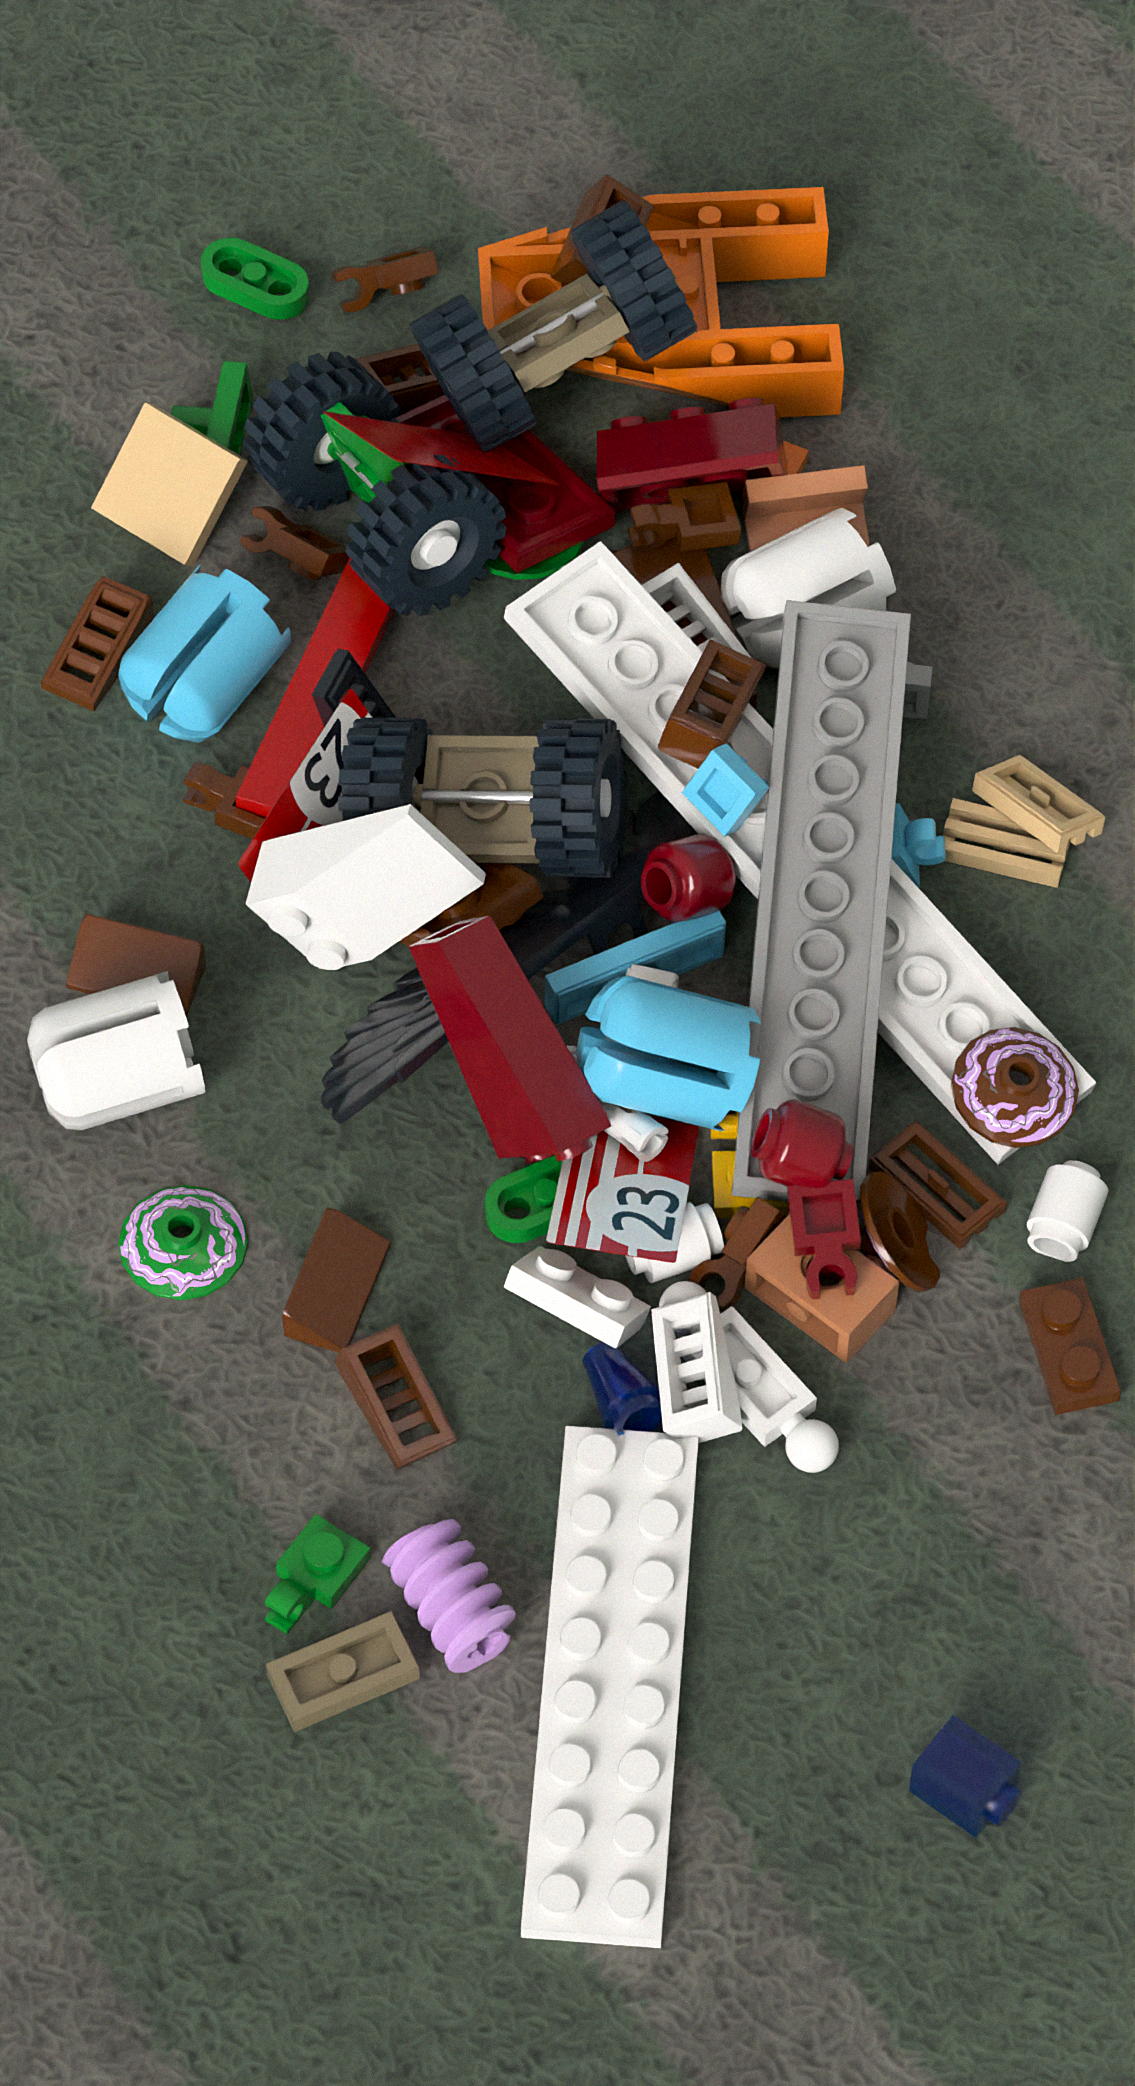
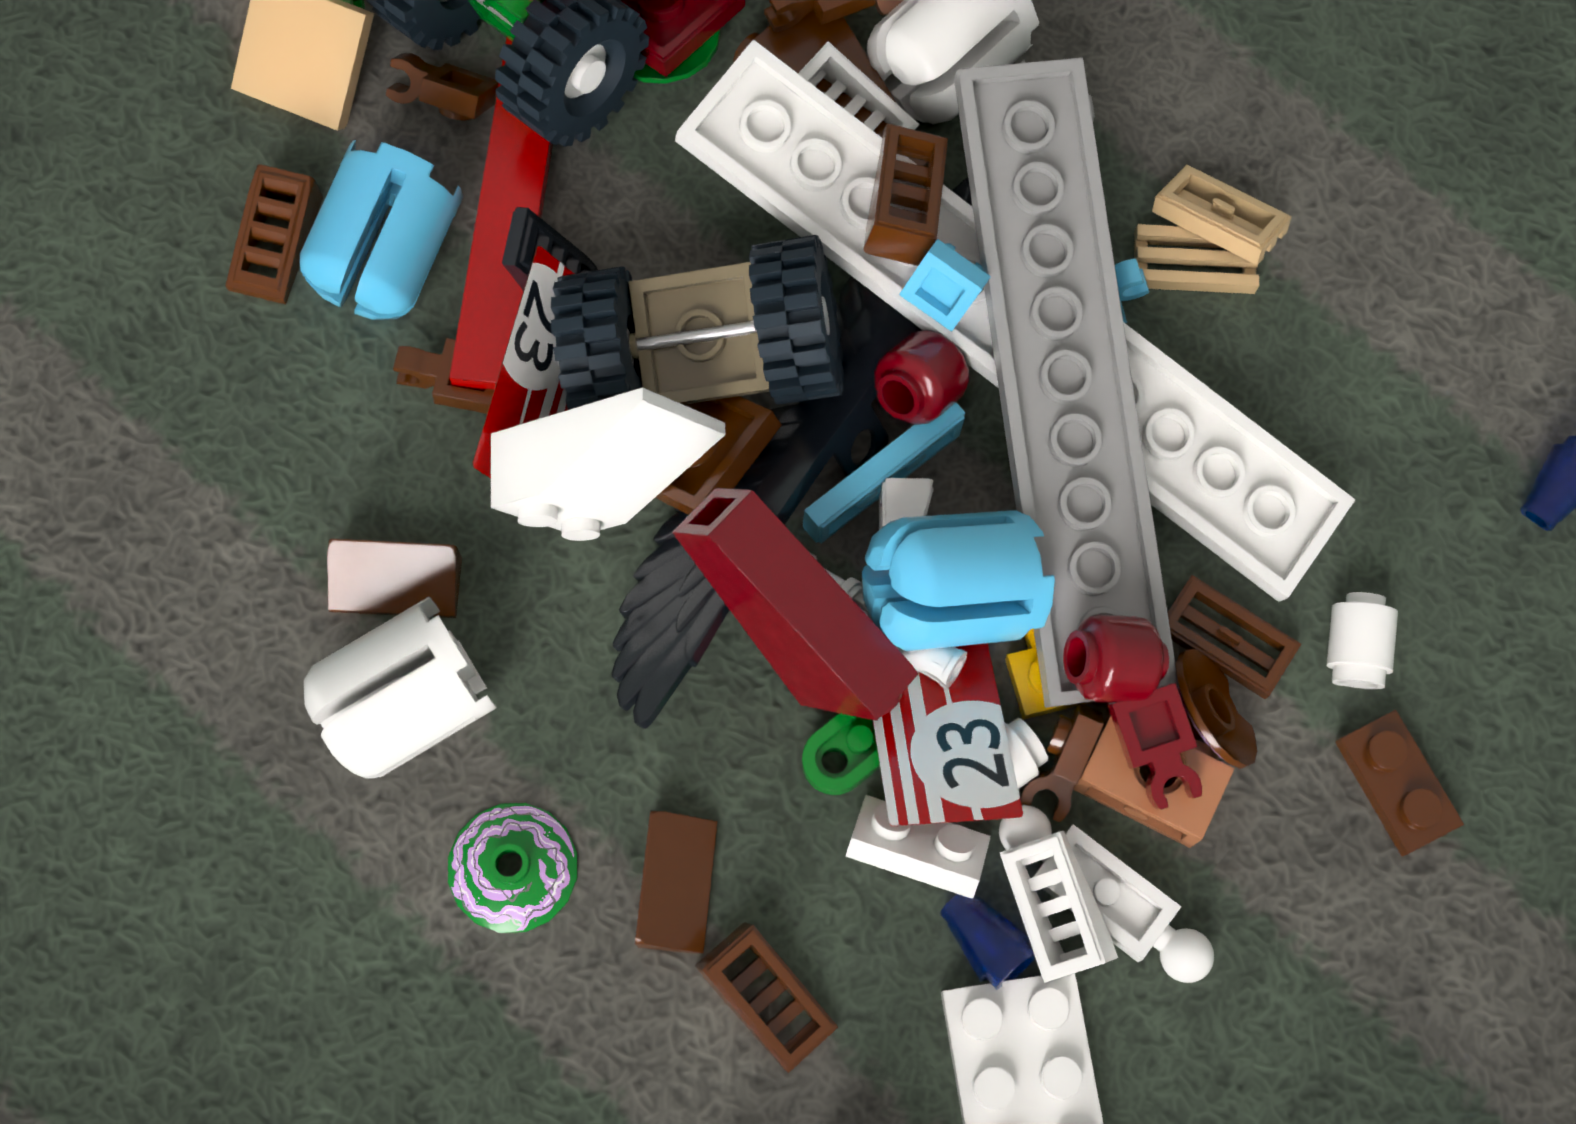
camera: 15 degrees left, 15 degrees up
(1008, 1111) = (1258, 531): dish -> none

